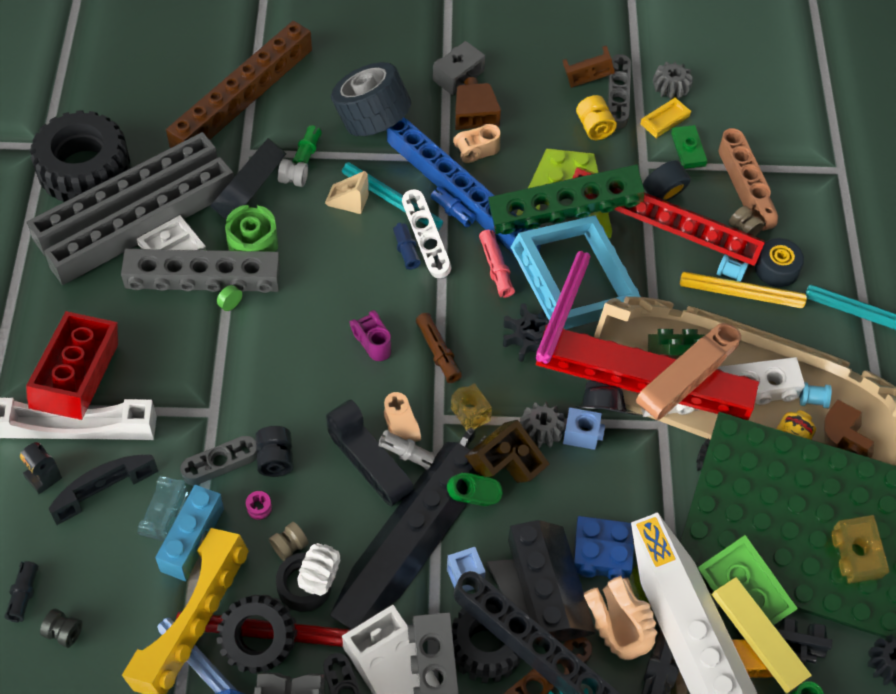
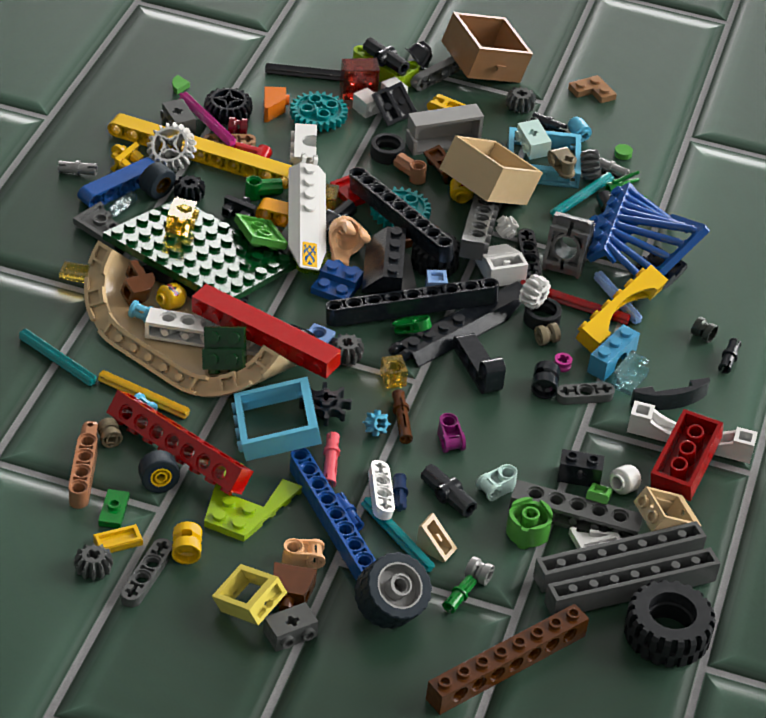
camera: 165 degrees left, 15 degrees down
(41, 466) = (715, 405): black leg -> none
(80, 267) = (653, 504): none -> tan window
(149, 331) = (625, 479): none -> white head
(177, 296) = (599, 493): none -> bright green tile
(205, 328) = (580, 468): none -> black brick
(229, 298) = (558, 484): bright green tile -> none
(233, 644) = (580, 283): black tyre -> none
(249, 178) = (517, 563): black beam -> none
(299, 286) = (499, 481): none -> light aqua piece
(353, 259) = (448, 490): none -> black piece
(401, 421) = (448, 377): light nougat piece -> none
(406, 449) = (451, 354): light grey pin -> none
(463, 320) = (376, 419): none -> medium azure gear
(476, 532) = (412, 302): none -> black beam
(502, 78) = (254, 610): none -> light yellow window
(510, 448) = (385, 327): dark brown brick -> none
(562, 308) = (307, 370): dark pink axle -> none
(575, 189) = (264, 448): dark green brick -> none
(589, 69) = (167, 590): reddish brown hinge -> none
(689, 370) = (241, 303): nougat piece -> none
(761, 635) = (268, 206): light yellow tile -> none
(779, 262) = (99, 397): black wheel -> none

